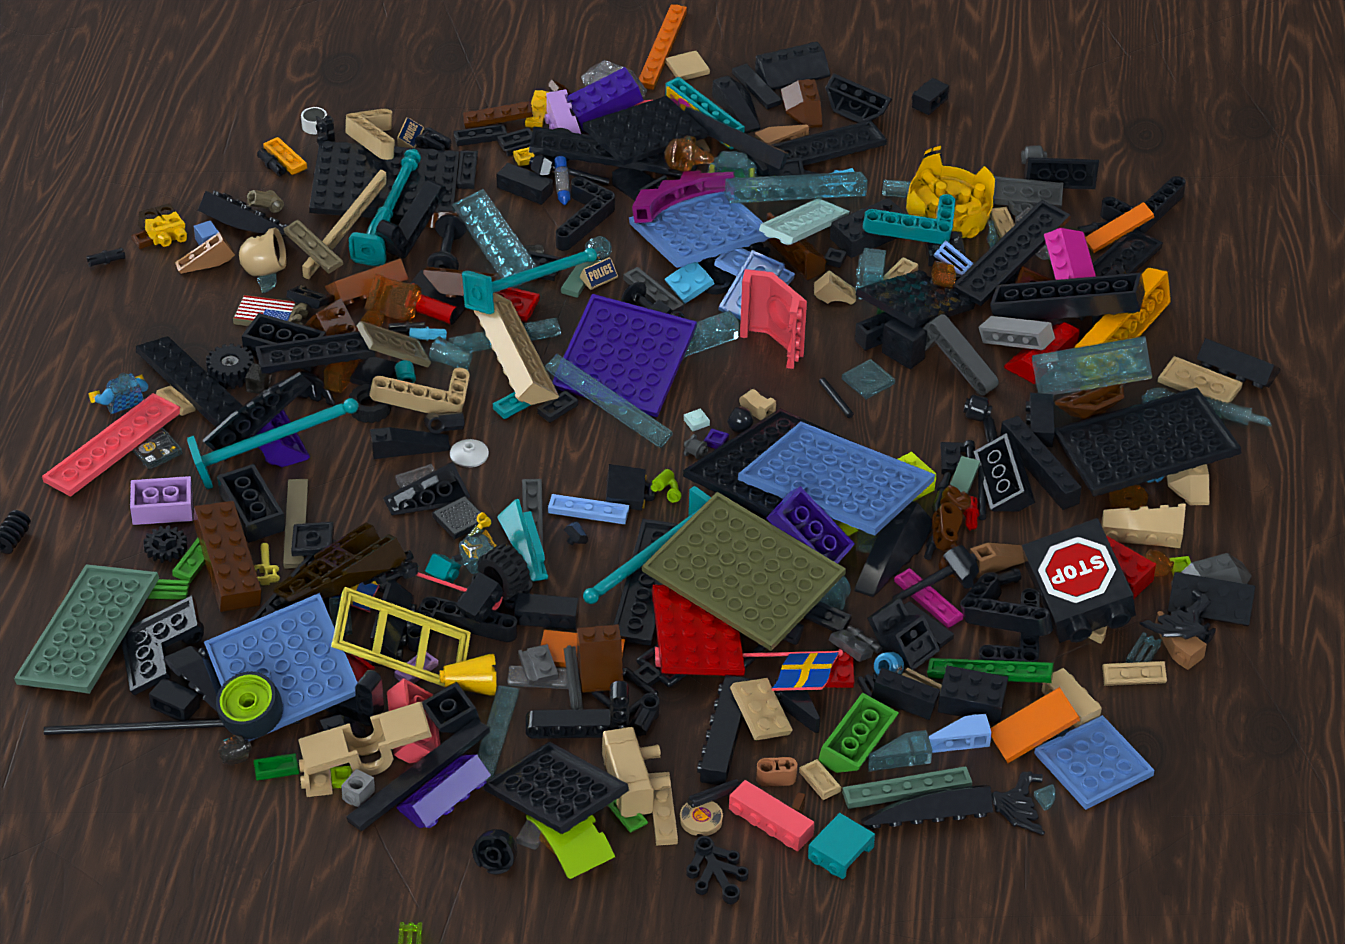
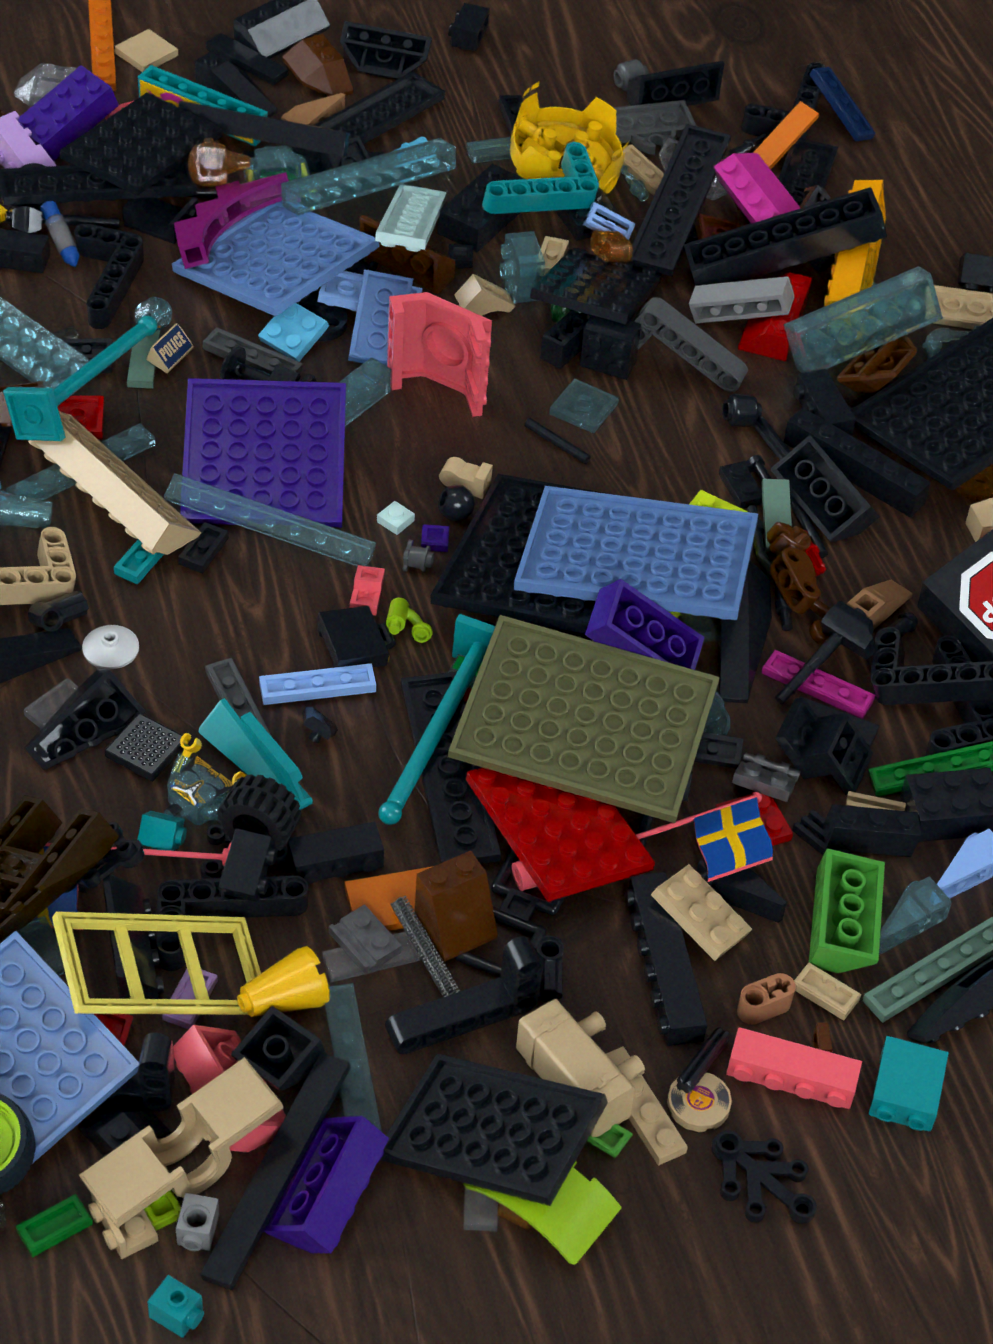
camera: 25 degrees left, 5 degrees up
(323, 828) = (176, 1306): none -> teal brick
(495, 851) = (450, 1258): black cylinder -> none
(653, 459) = (367, 588): none -> coral slope
(889, 661) = (826, 786): dark azure head -> none
(1183, 211) = (842, 103): none -> dark blue tile

